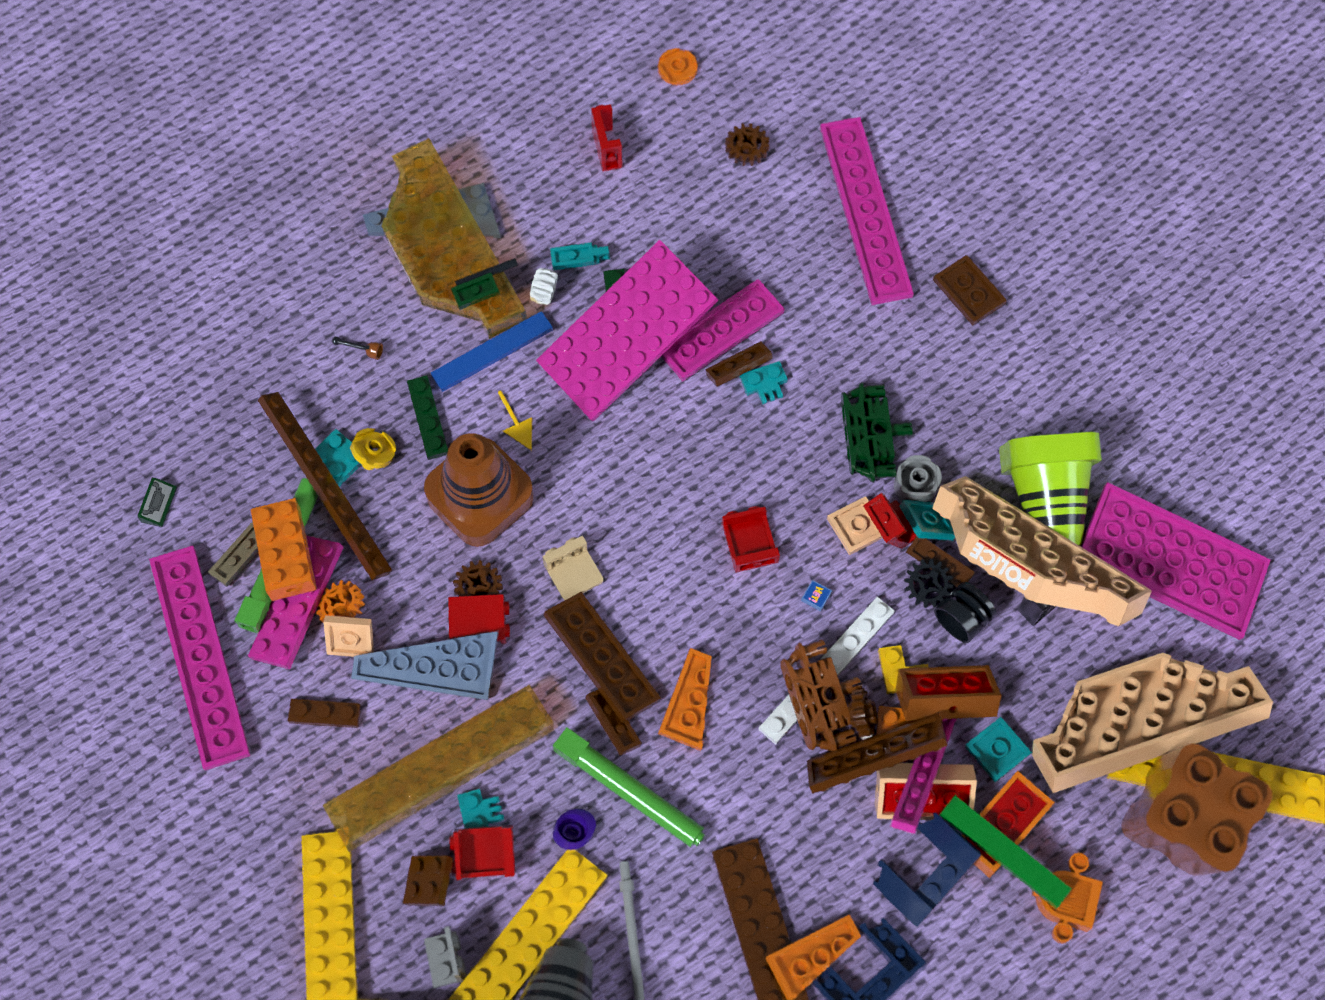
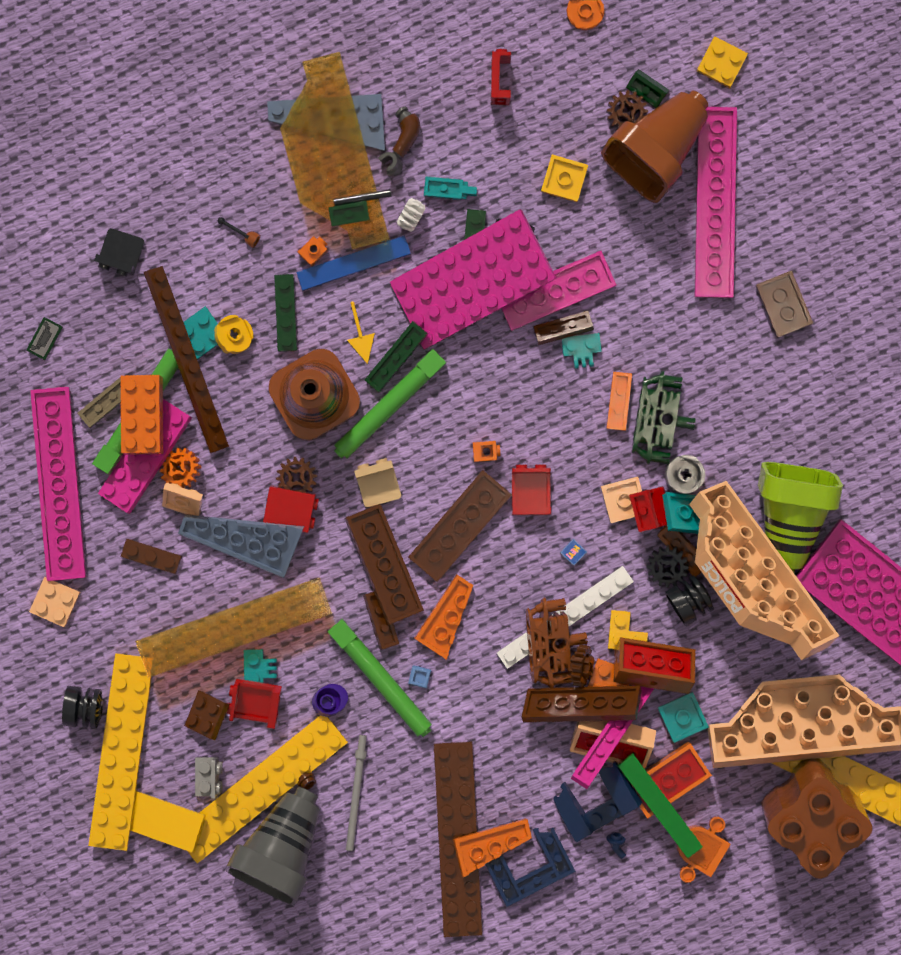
camera: 10 degrees right, 20 degrees up
(217, 793) = (54, 602): none -> light nougat plate
(228, 395) = (120, 252): none -> black bracket
(266, 906) = (78, 707): none -> black wheel
(446, 352) = (310, 257): none -> orange brick
(522, 209) = (410, 130): none -> piece
(561, 431) = (396, 356): none -> dark green plate
(568, 930) = (306, 781): none -> reddish brown plate
(597, 440) = (389, 404): none -> bright green brick
(675, 777) = (419, 676): none -> medium blue tile
(678, 596) = (459, 525): none -> reddish brown plate
(686, 501) = (478, 448): none -> orange brick
(699, 220) = (564, 178): none -> yellow plate
(767, 122) = (645, 86): none -> dark green slope
(784, 165) = (655, 147): none -> dark orange cone
(821, 424) = (619, 401): none -> orange plate
(831, 83) = (722, 62): none -> yellow plate
(963, 915) = (616, 839): none -> dark blue plate

